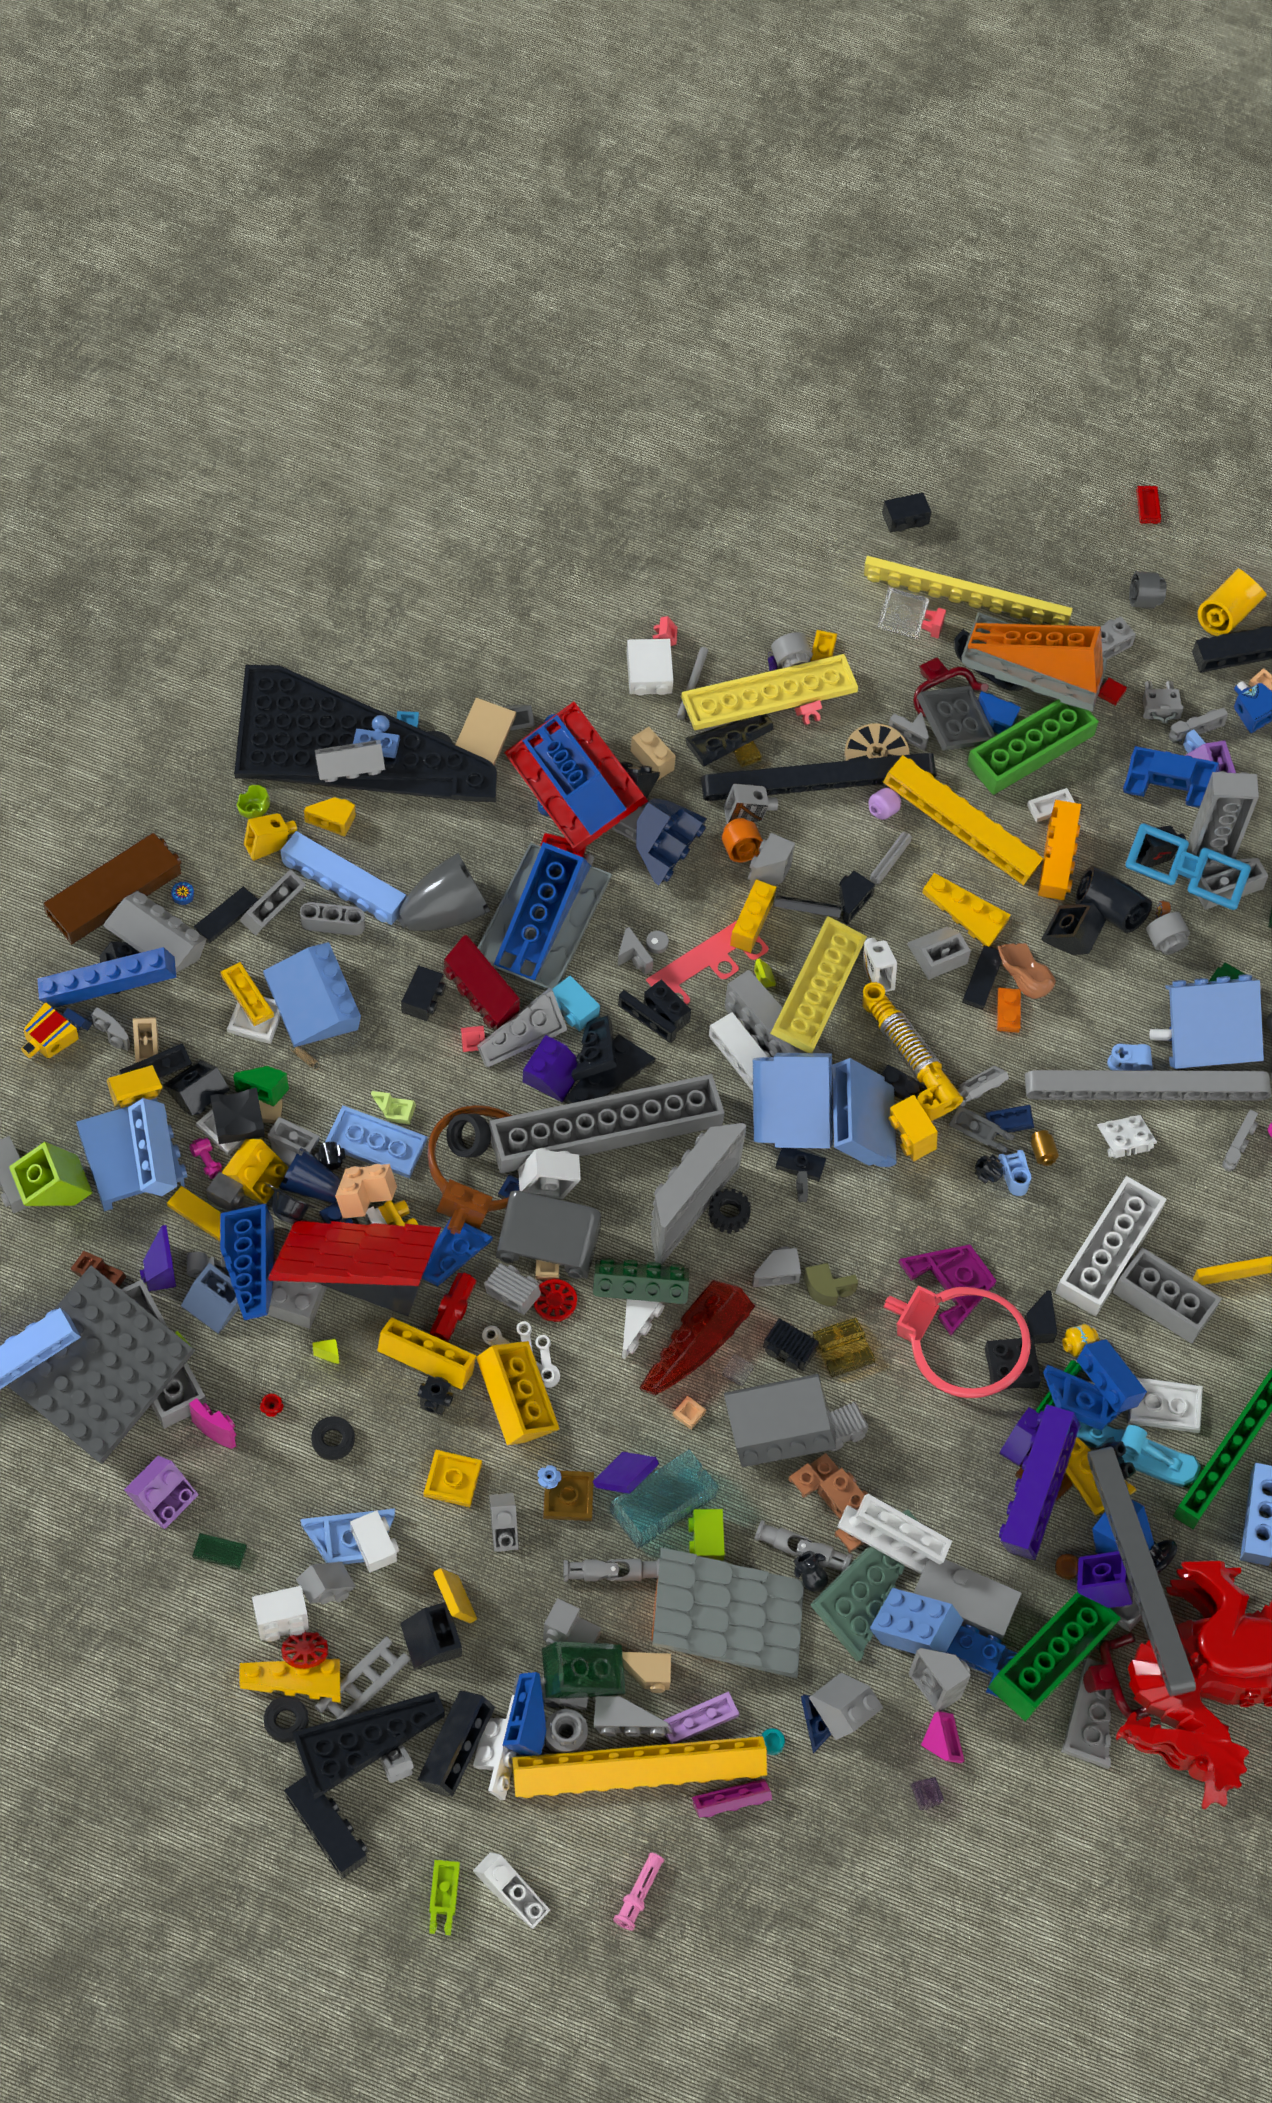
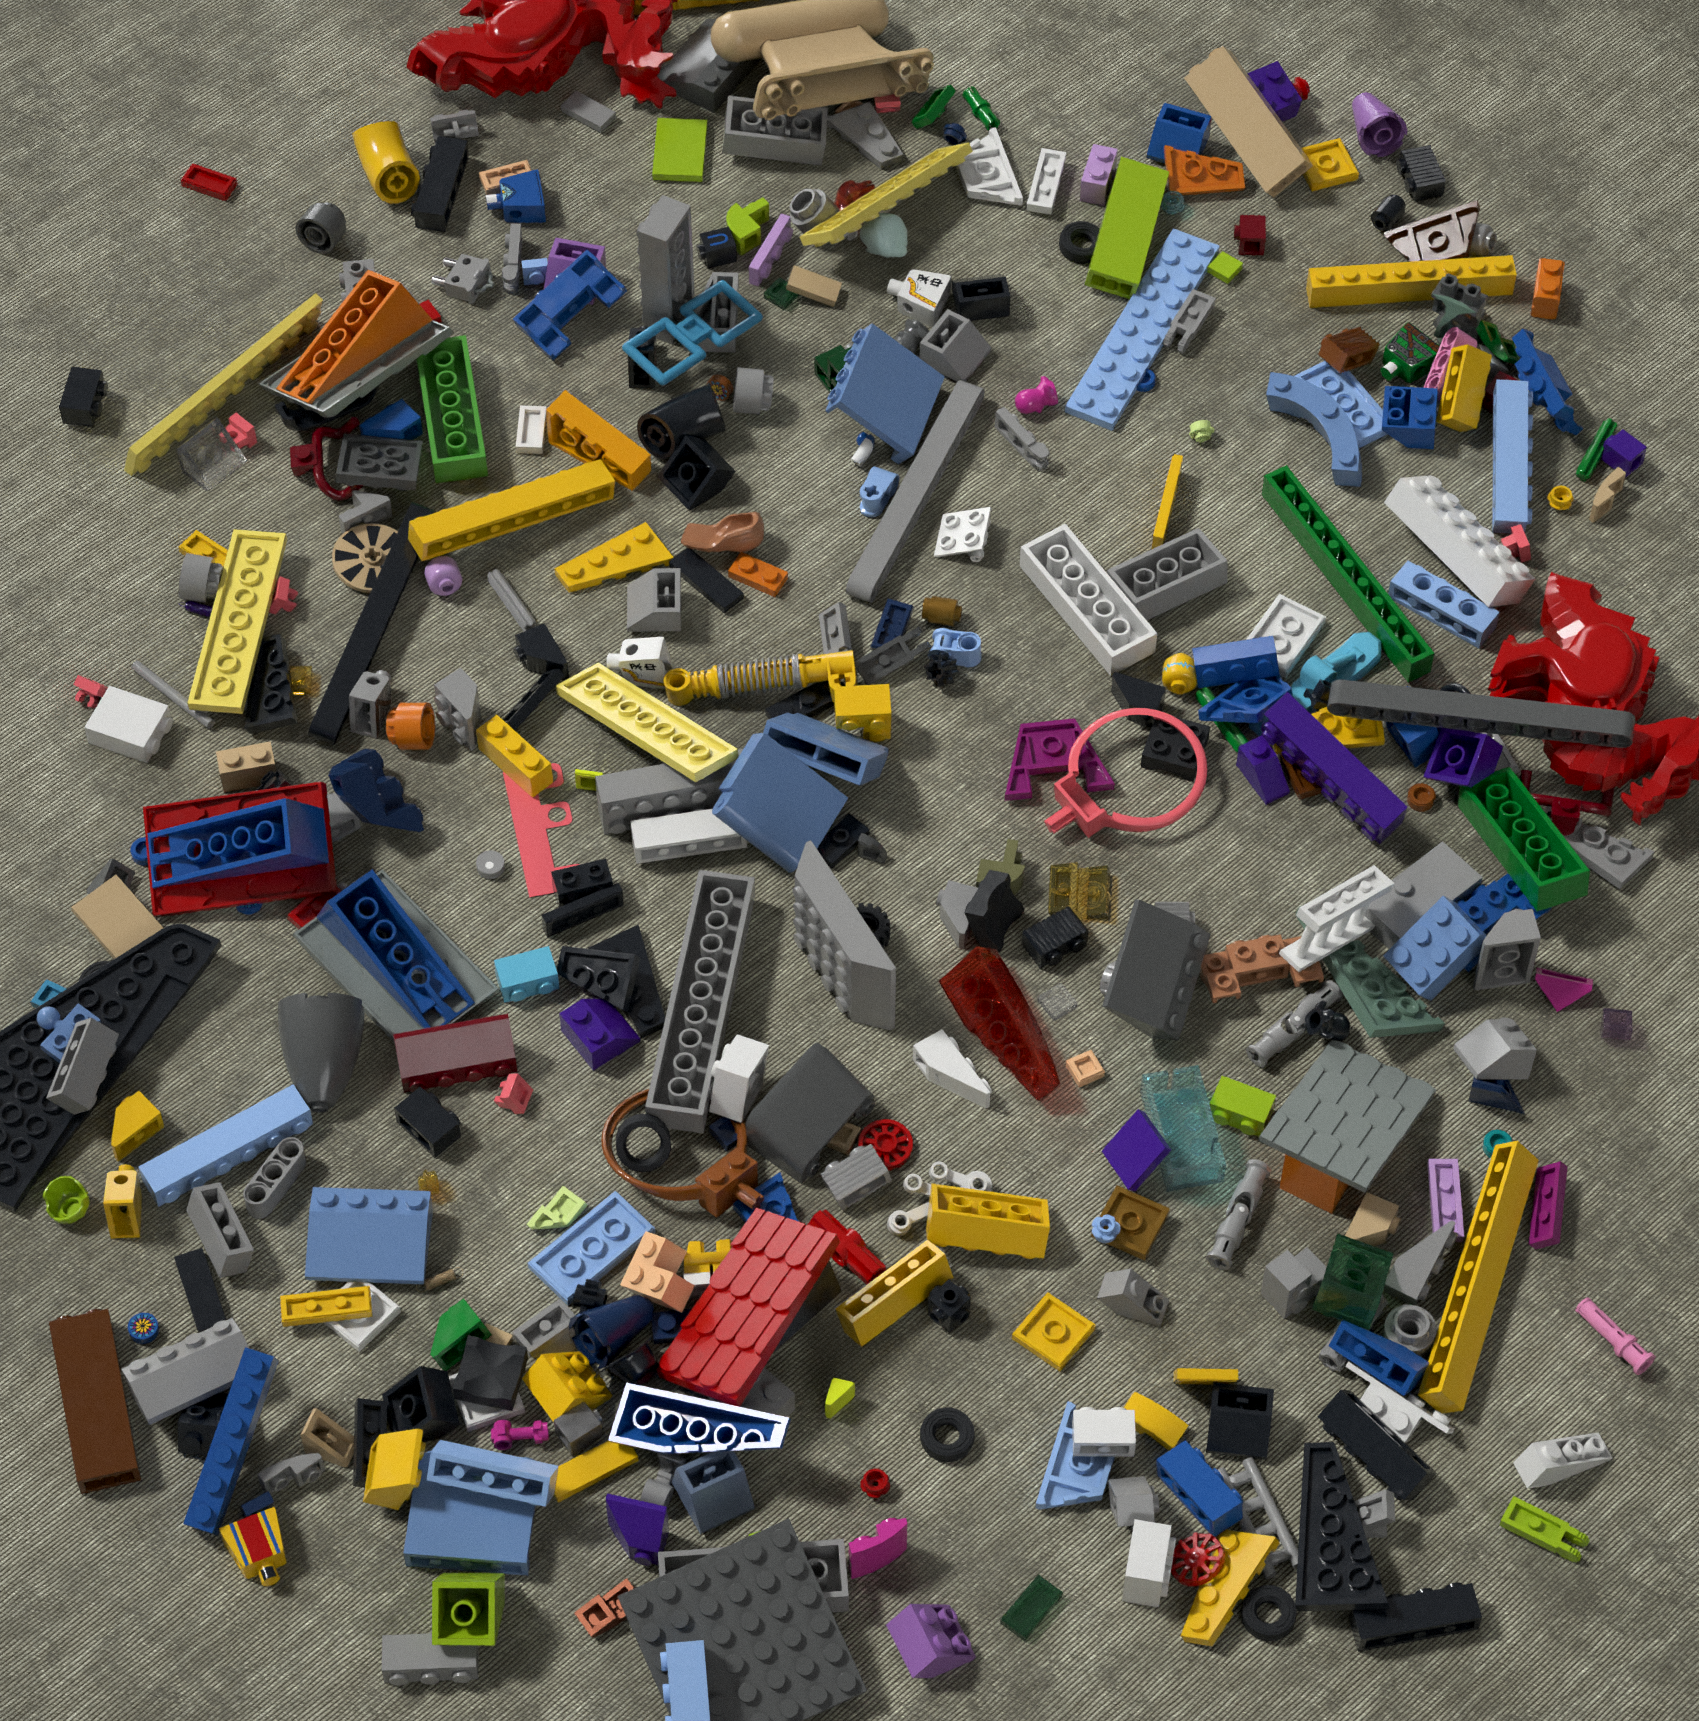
camera: 60 degrees left, 5 degrees down
(362, 1629) = (1200, 1488): none -> blue brick
(375, 1016) = (429, 1182): none -> clear yellow plate
(408, 1575) = (1156, 1421): none -> yellow slope
(524, 1030) = (535, 1032): light grey wing -> none
(633, 949) = (487, 888): light grey slope -> none
(641, 1281) = (914, 1042): dark green bracket -> none
(785, 1289) = (993, 910): none -> black brick

